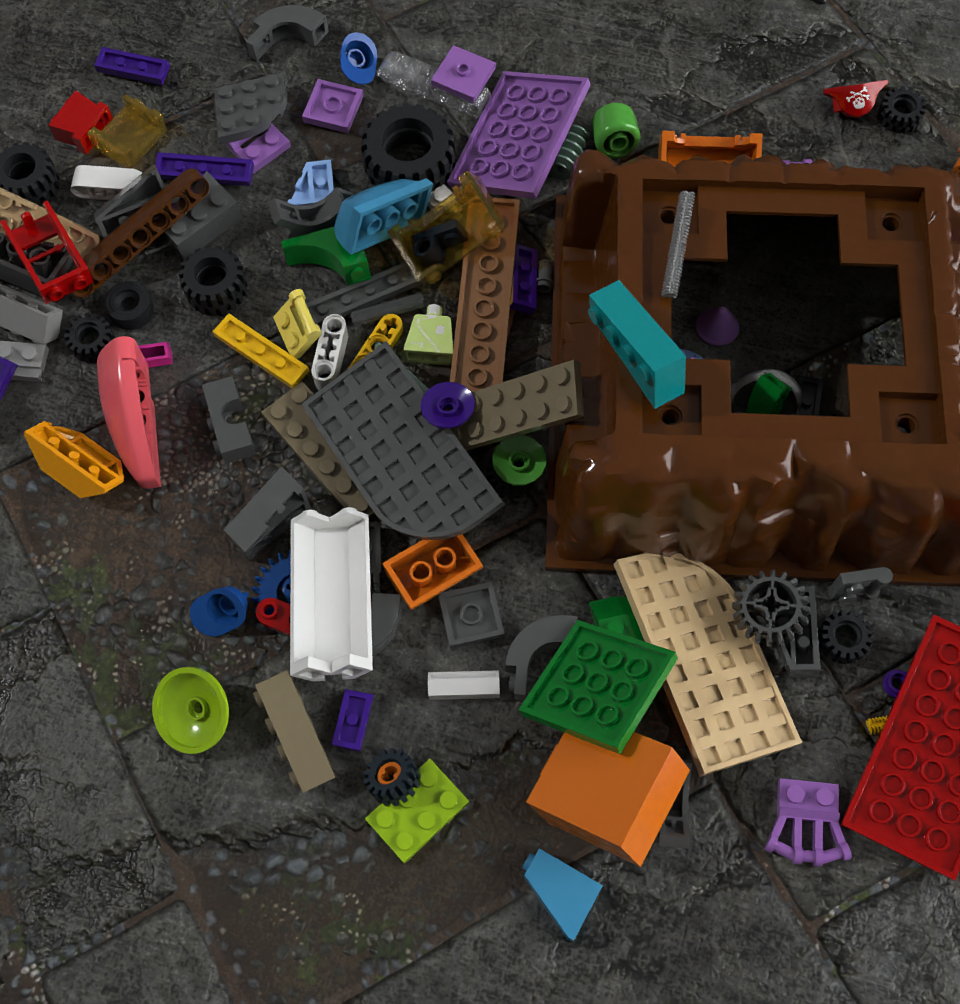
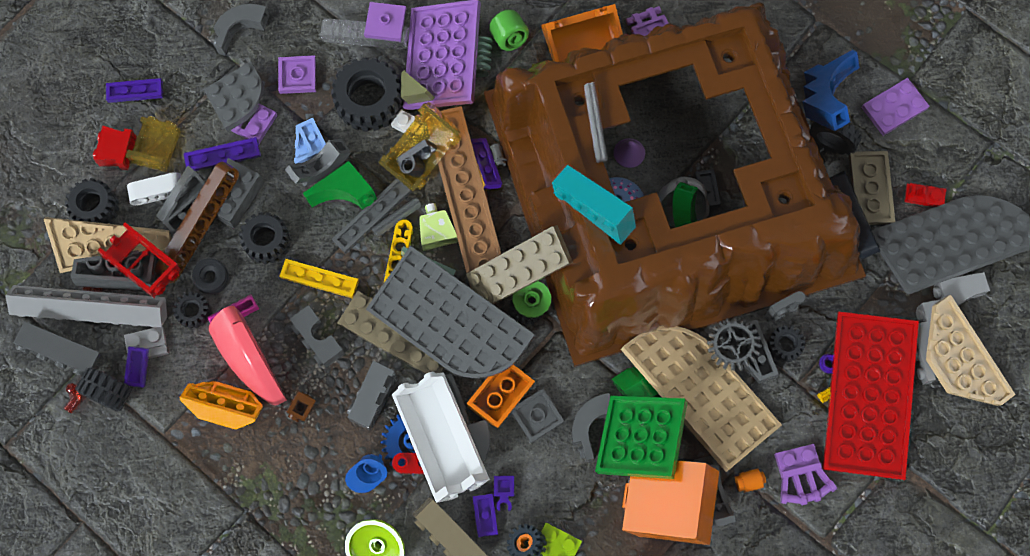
camera: 20 degrees left, 5 degrees up
(173, 486) = (306, 400): none -> reddish brown brick
(296, 324) = (338, 251): light yellow plate -> none
(326, 340) = (363, 254): white beam -> none
(358, 58) = (303, 33): blue piece -> none
(374, 211) = (366, 149): dark azure windscreen -> none
(390, 694) = (504, 488): none -> dark purple plate
(447, 396) = (472, 271): dark purple dish -> none
(463, 685) = (549, 464): white piece -> none
(464, 159) = (413, 91): none -> olive slope
(731, 802) = (750, 480): none -> orange brick

